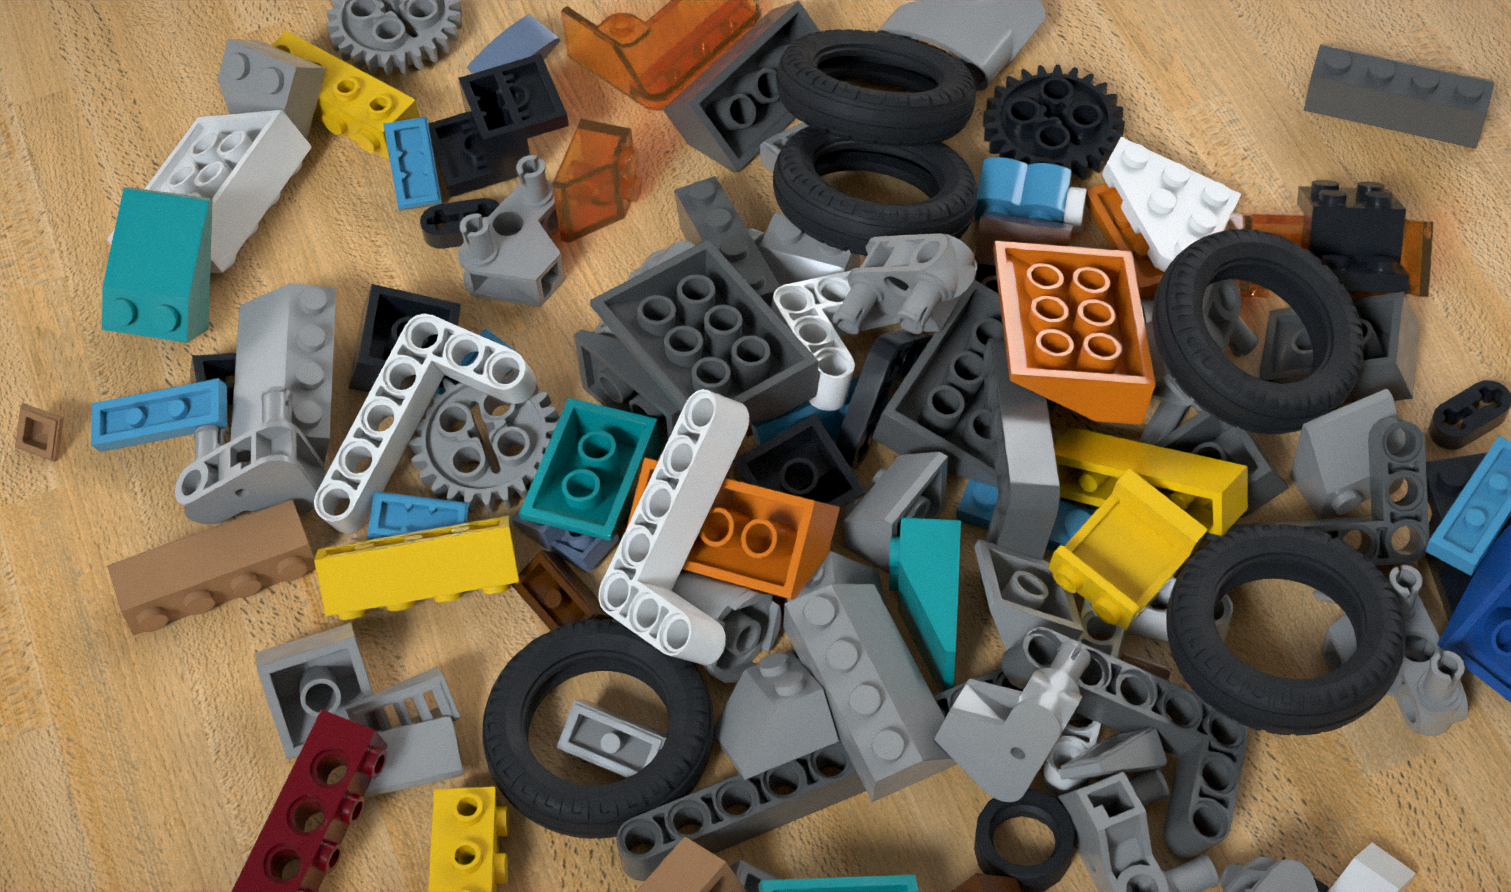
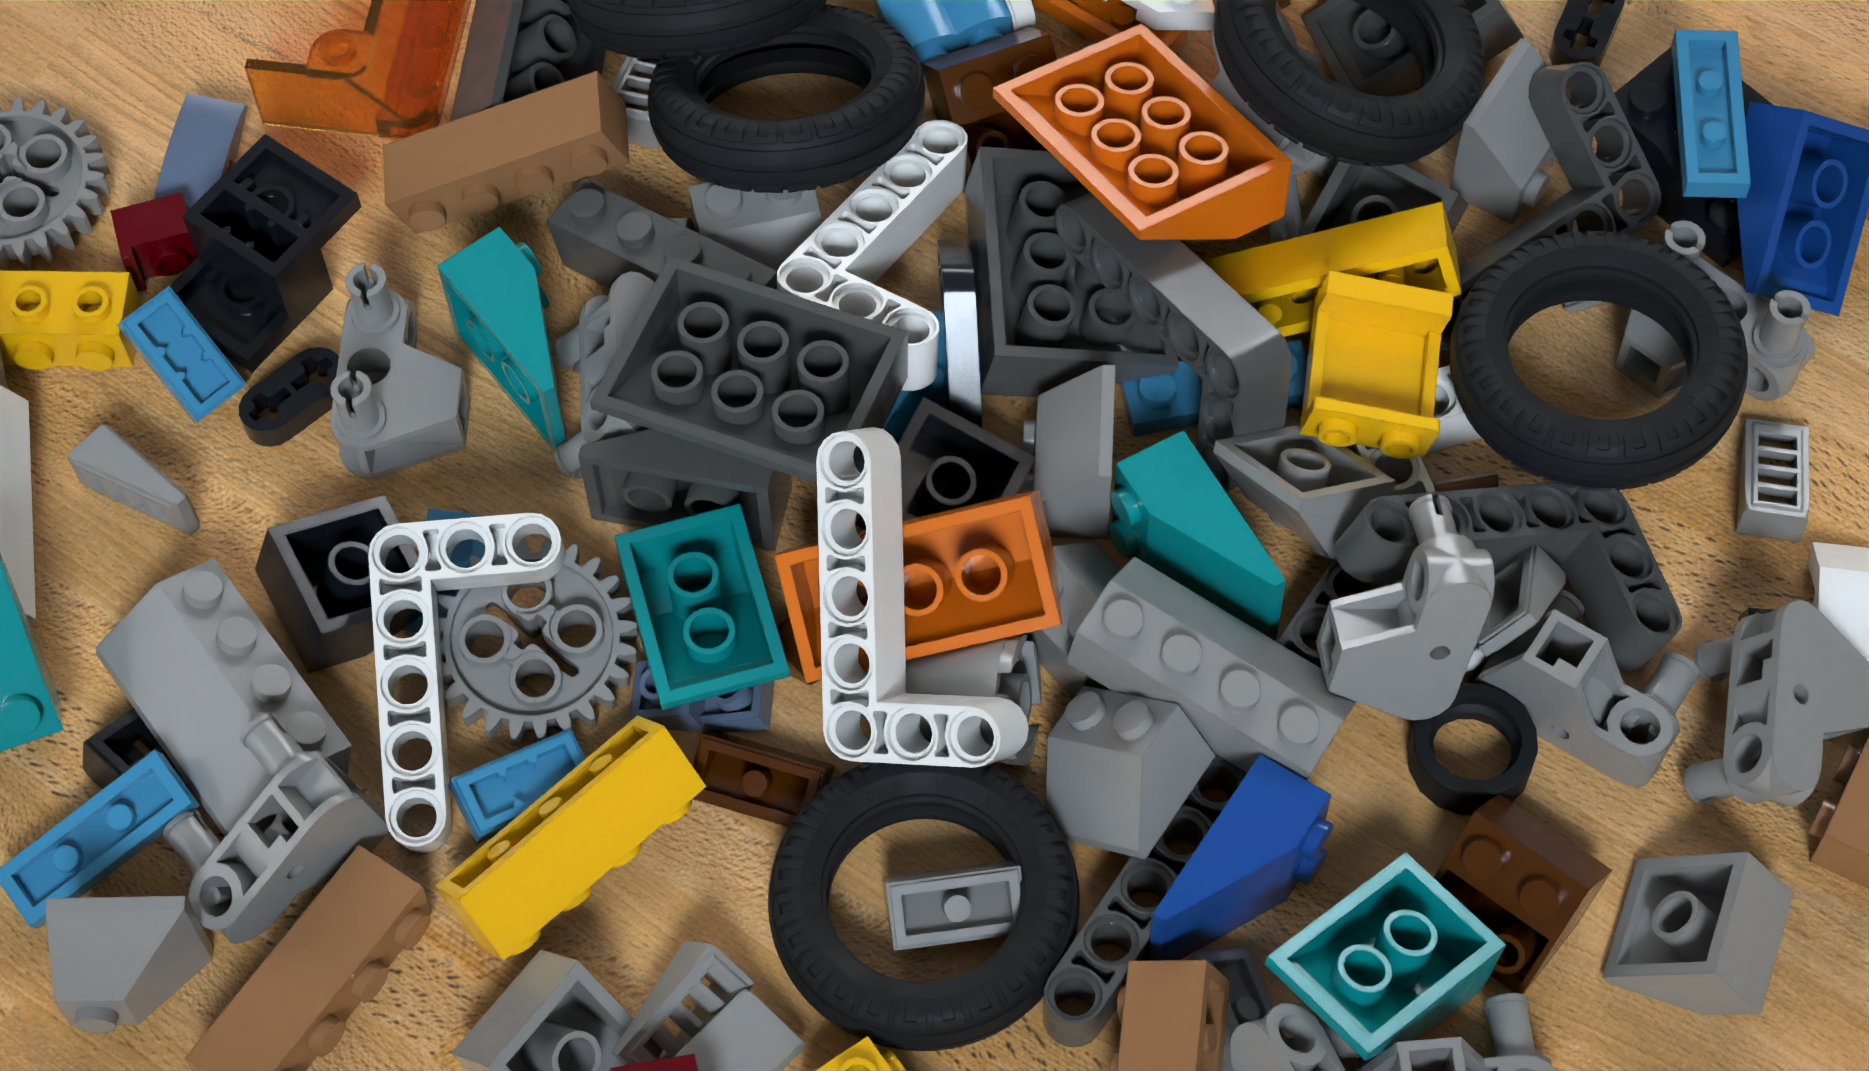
camera: 35 degrees left, 5 degrees up
(118, 489) = (121, 956): none -> light grey slope
(331, 215) = (123, 474): none -> light grey slope
(440, 88) = (153, 238): none -> dark red brick
(596, 179) = (430, 226): clear orange slope -> none
(609, 235) = (504, 324): none -> teal slope
(691, 136) = (506, 153): none -> medium nougat brick
(803, 821) = (1246, 862): none -> blue slope
(910, 280) = (937, 185): light grey piece -> none
(1354, 810) = (1770, 517): none -> light grey slope

